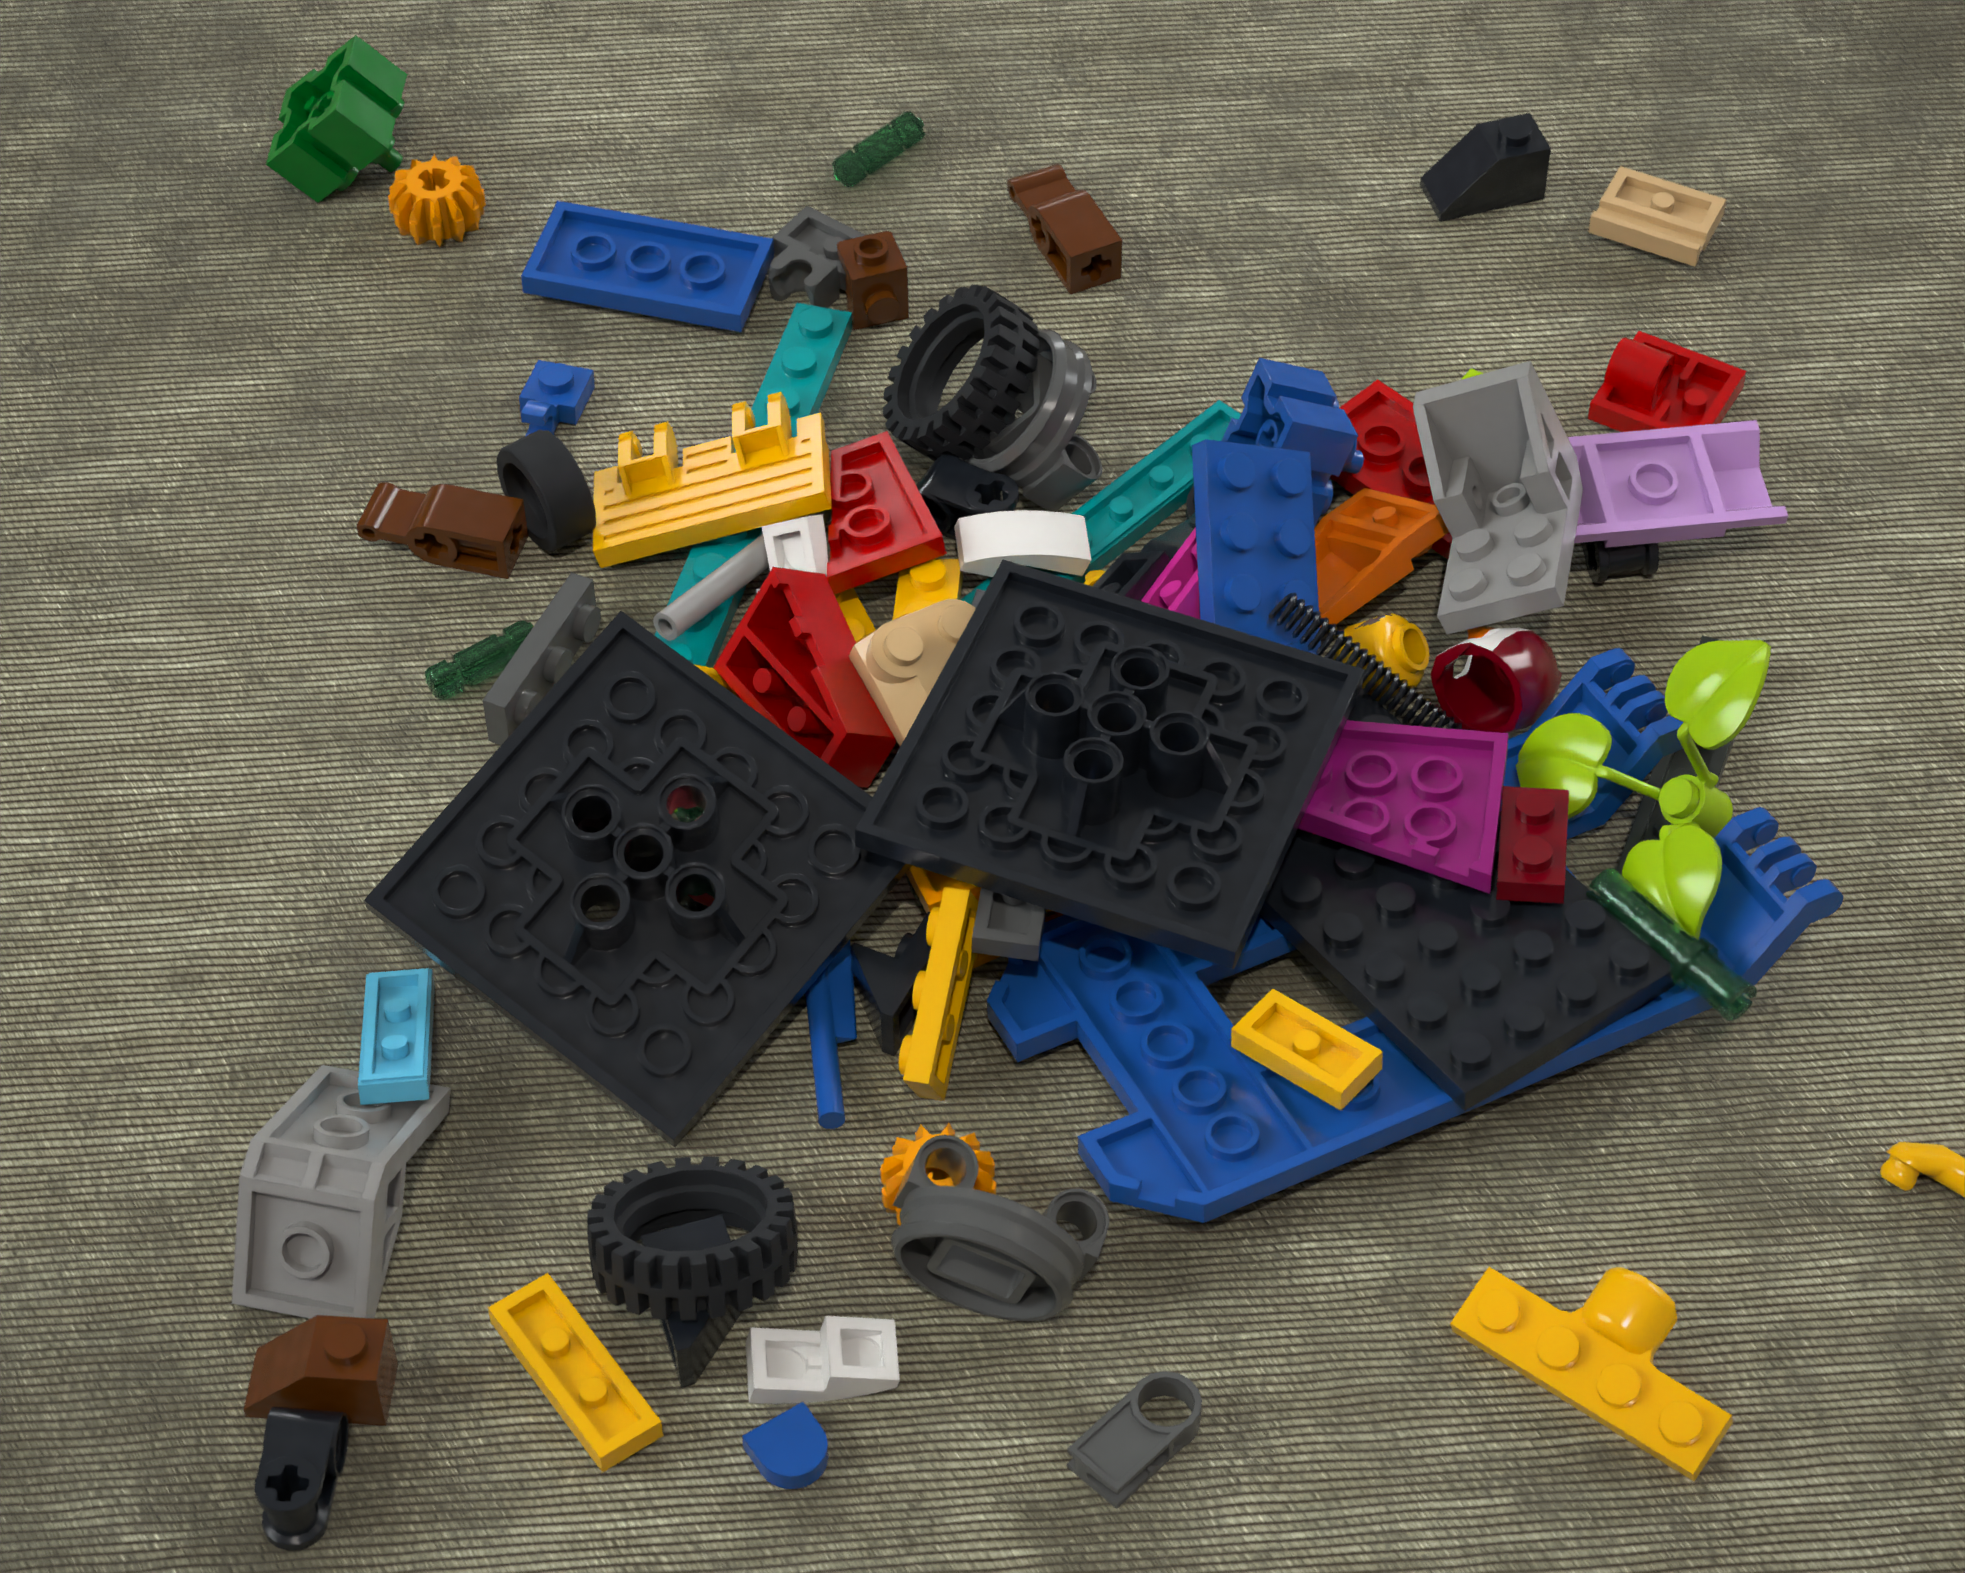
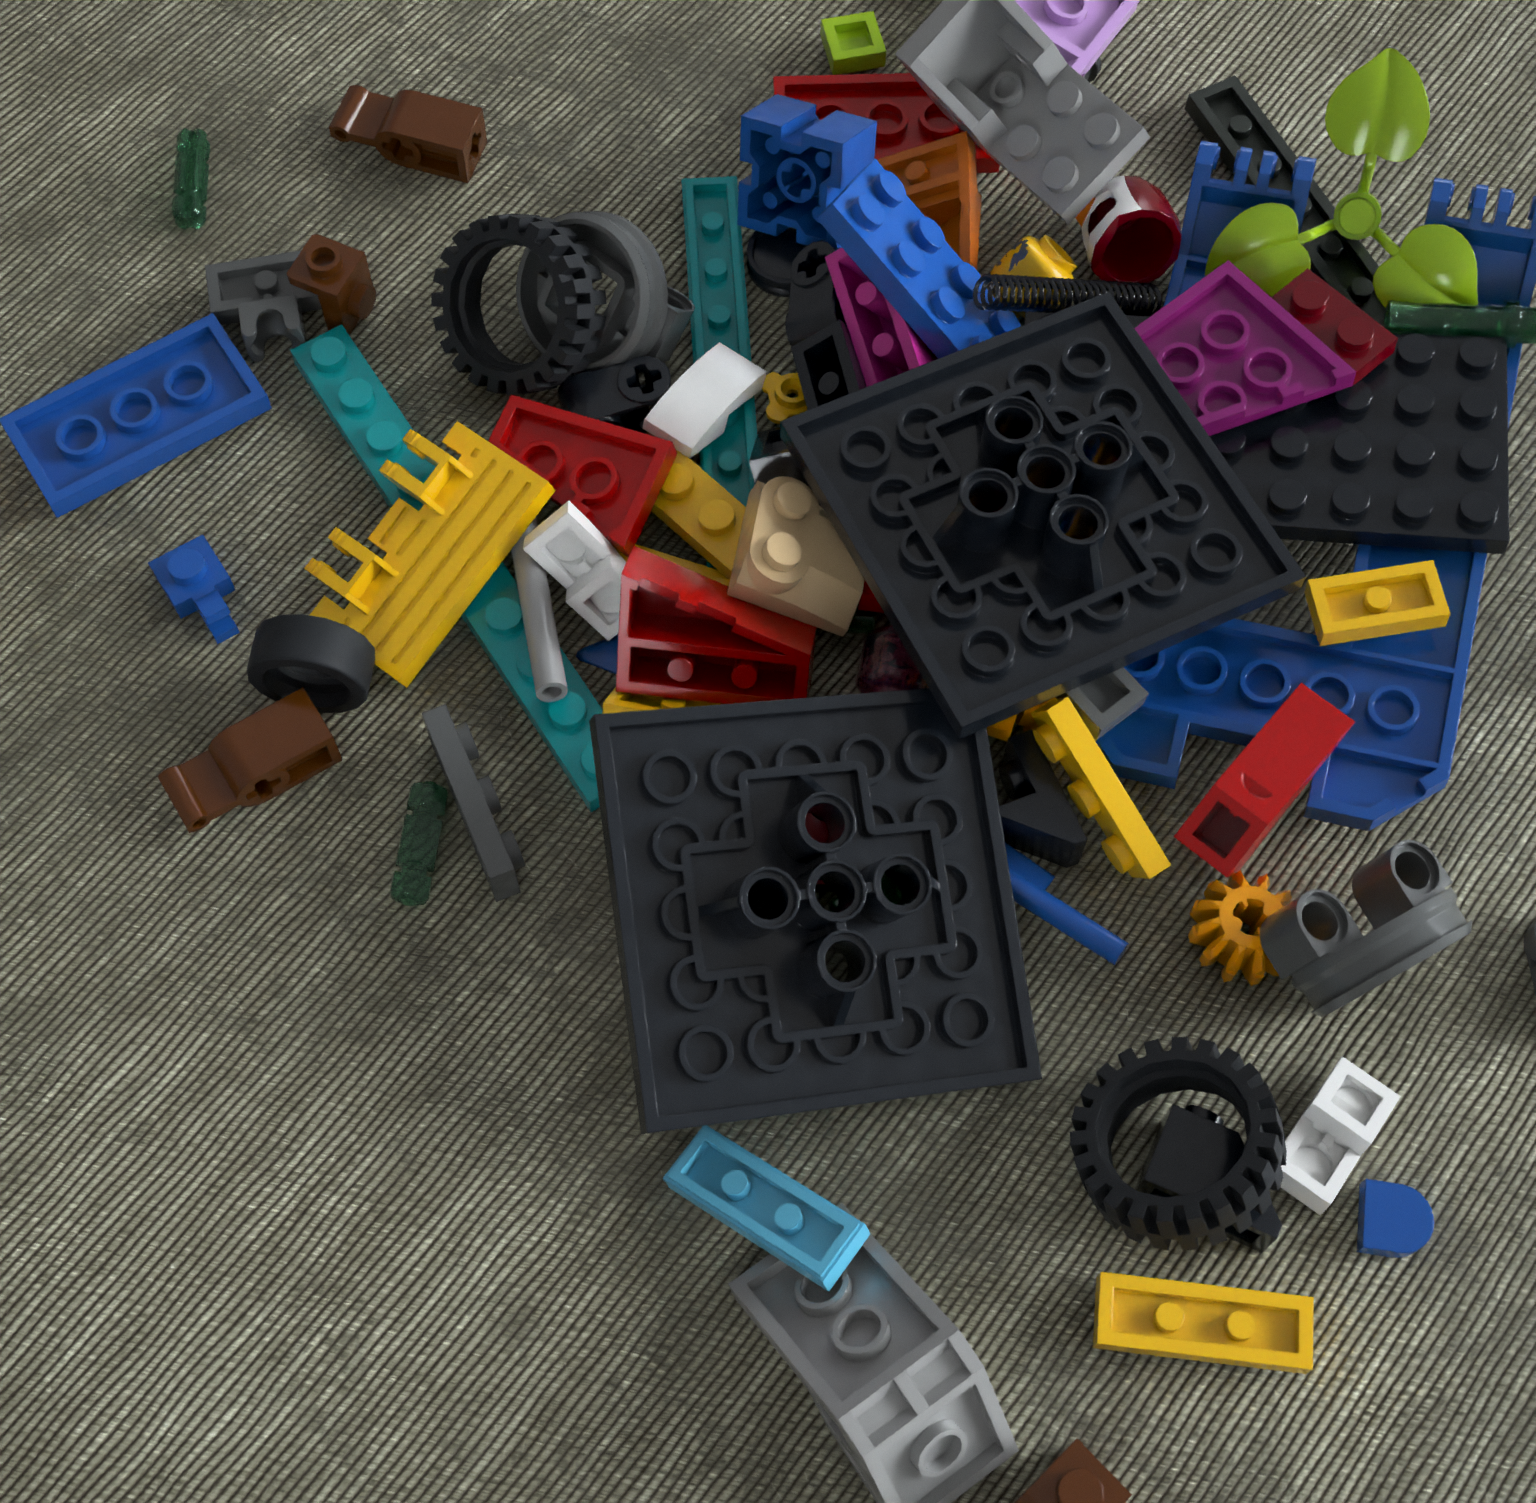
camera: 50 degrees left, 15 degrees up
(1054, 1089) = (1264, 781): none -> red slope

